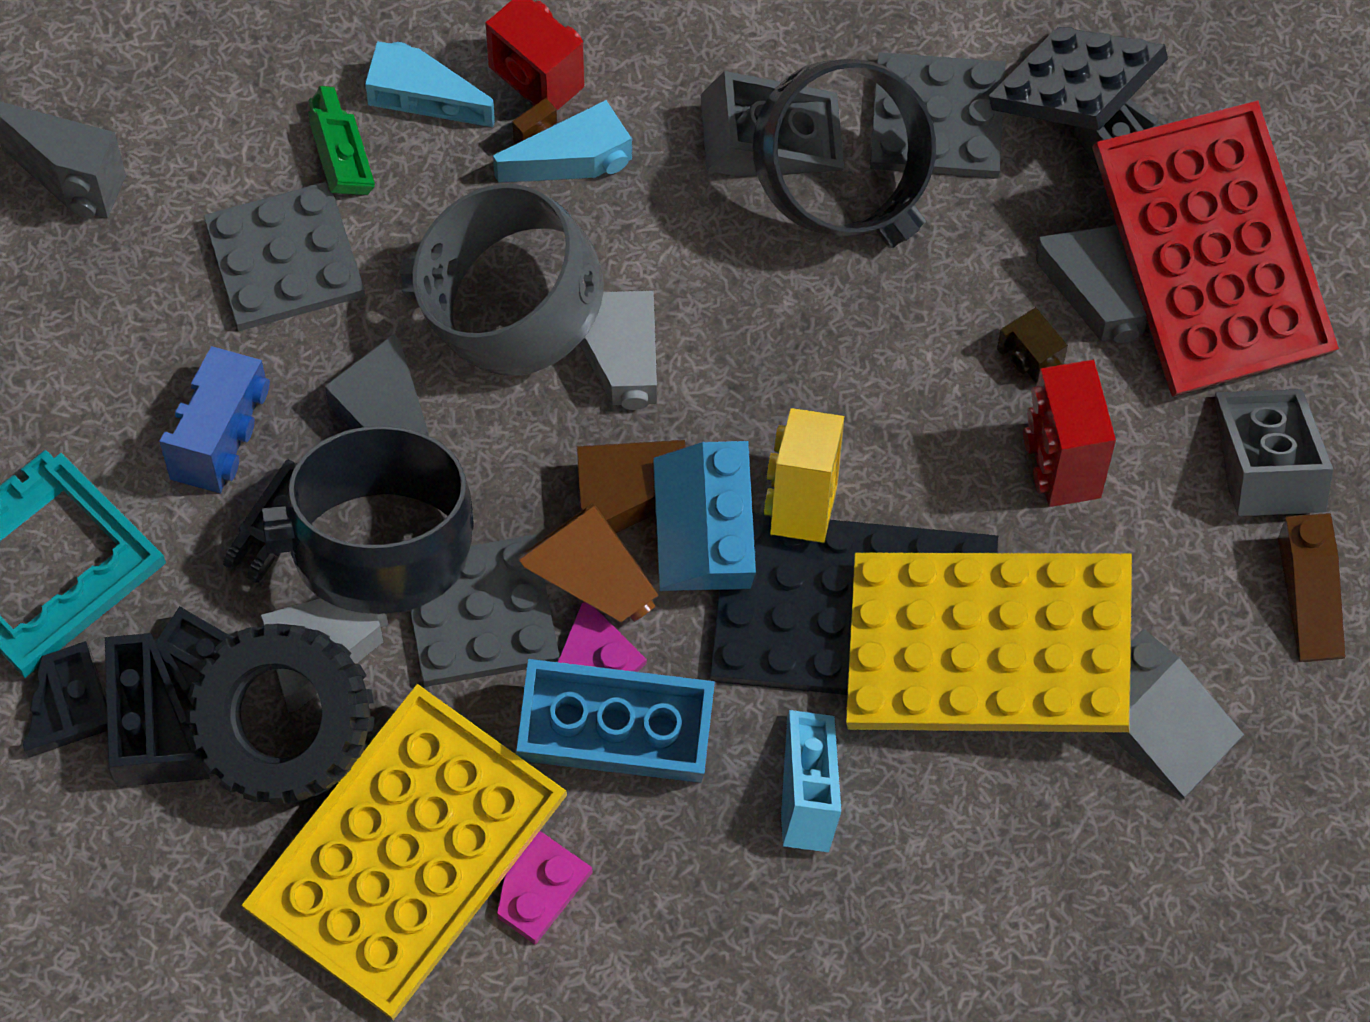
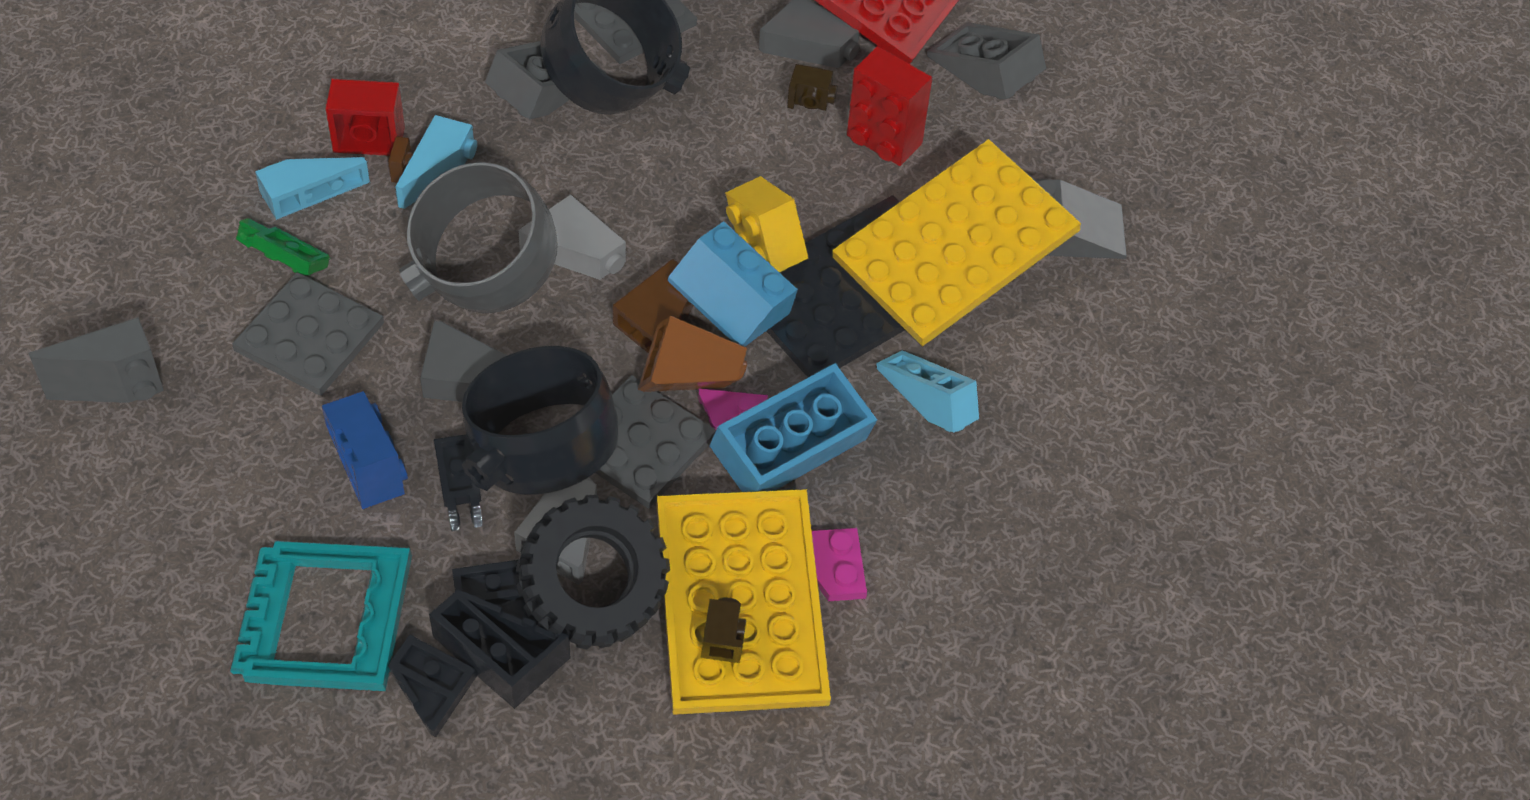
camera: 45 degrees left, 10 degrees down
(345, 866) = (723, 631): none -> dark brown brick
(1313, 586) = (1077, 104): reddish brown slope -> none

